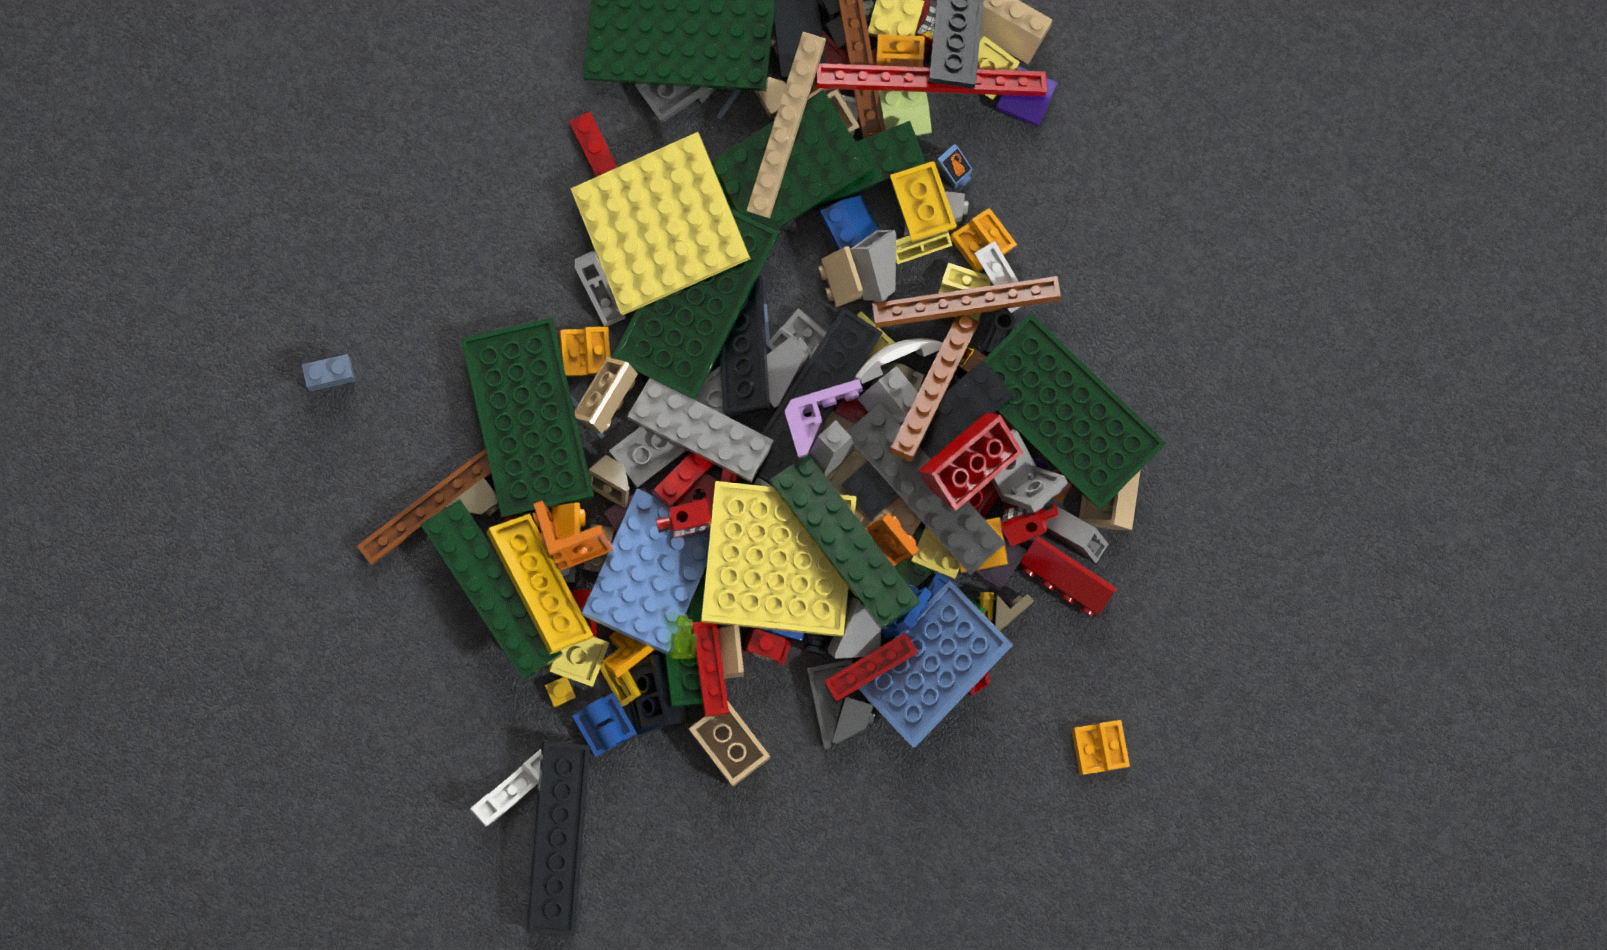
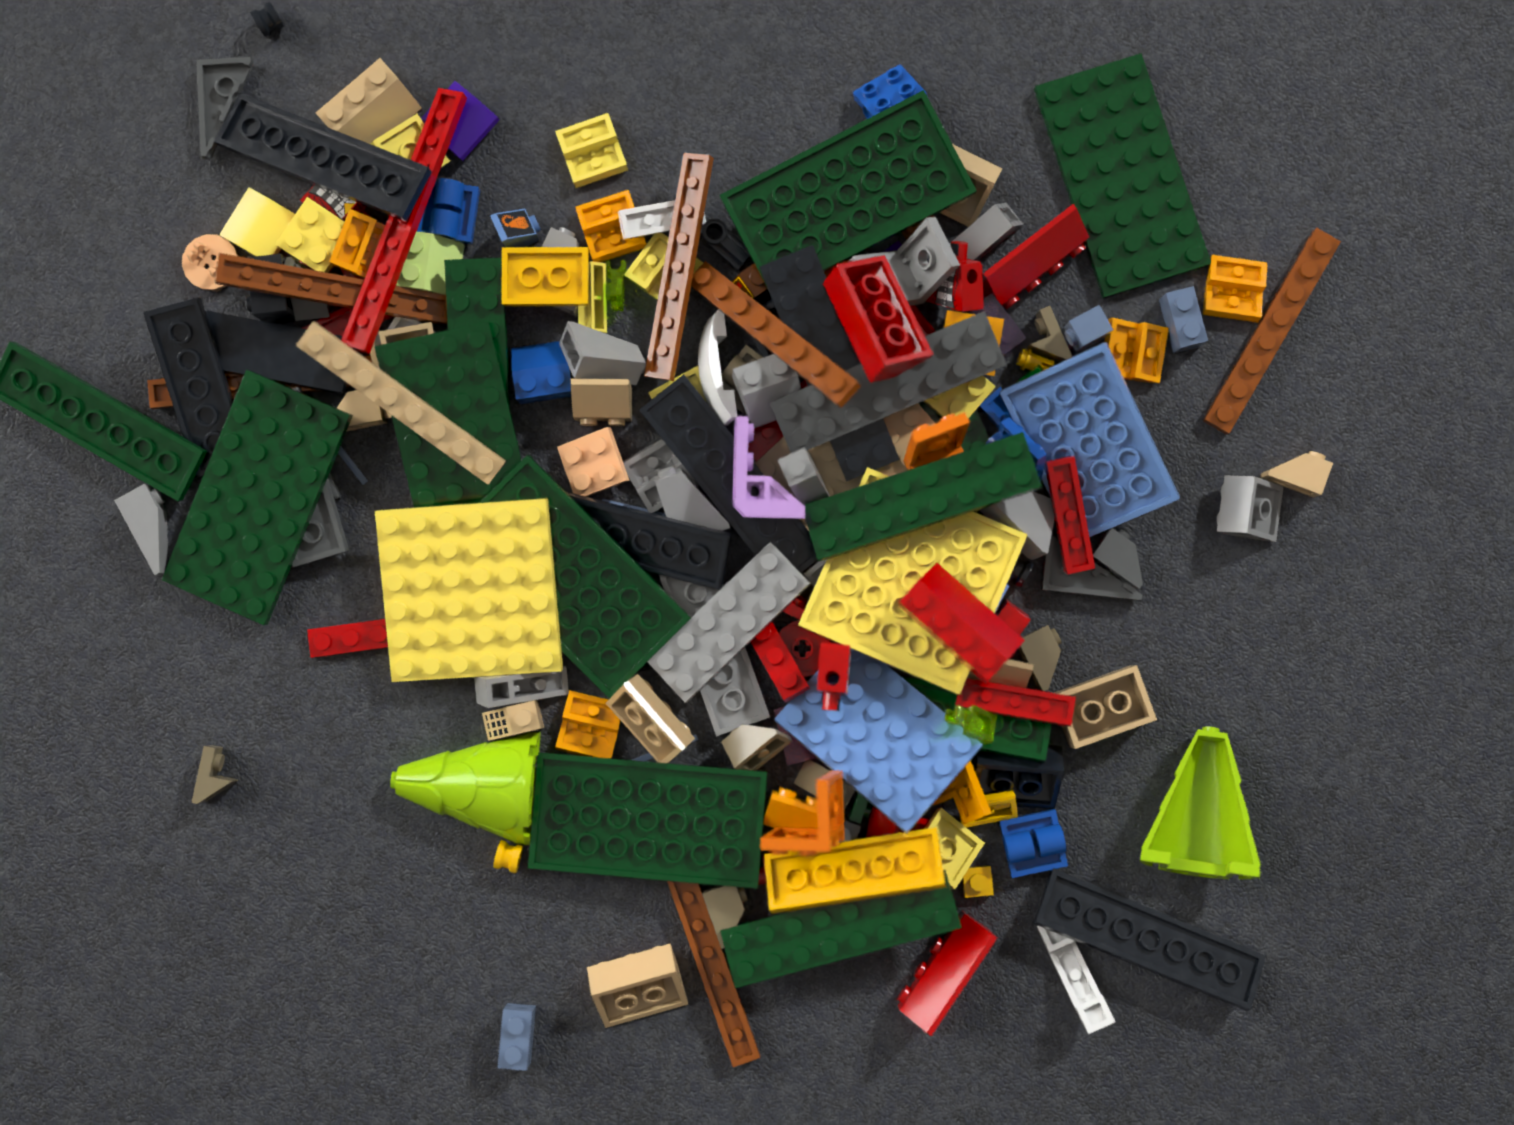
camera: 70 degrees left, 5 degrees up
(395, 452) = (637, 985): none -> tan slope
(449, 75) = (208, 782): none -> dark tan slope
(464, 321) = (508, 856): none -> yellow wheel
(482, 685) = (945, 973): none -> red slope
(511, 280) = (478, 785): none -> lime cone
(571, 291) = (513, 720): none -> tan slope
(586, 579) = (860, 809): none -> dark green plate
(667, 845) = (1204, 816): none -> lime cone
(755, 683) = (1043, 652): none -> dark tan slope
(757, 602) = (960, 622): none -> red slope
(791, 287) = (593, 463): none -> light nougat plate
(926, 813) = (1250, 508): none -> light grey slope
(934, 260) = (616, 288): none -> clear neon green plate
(952, 113) = (451, 211): none -> blue plate
(968, 845) = (1302, 474): none -> tan slope
(1022, 634) = (1086, 330): none -> sand blue brick
(1022, 682) = (1138, 349): none -> light orange slope
(1038, 206) = (591, 150): none -> light yellow slope
(1059, 712) = (1183, 319): none -> sand blue brick
(1076, 788) = (1271, 331): none -> dark orange plate
(1161, 629) = (1122, 175): none -> dark green plate
(1163, 421) = (886, 91): none -> blue plate

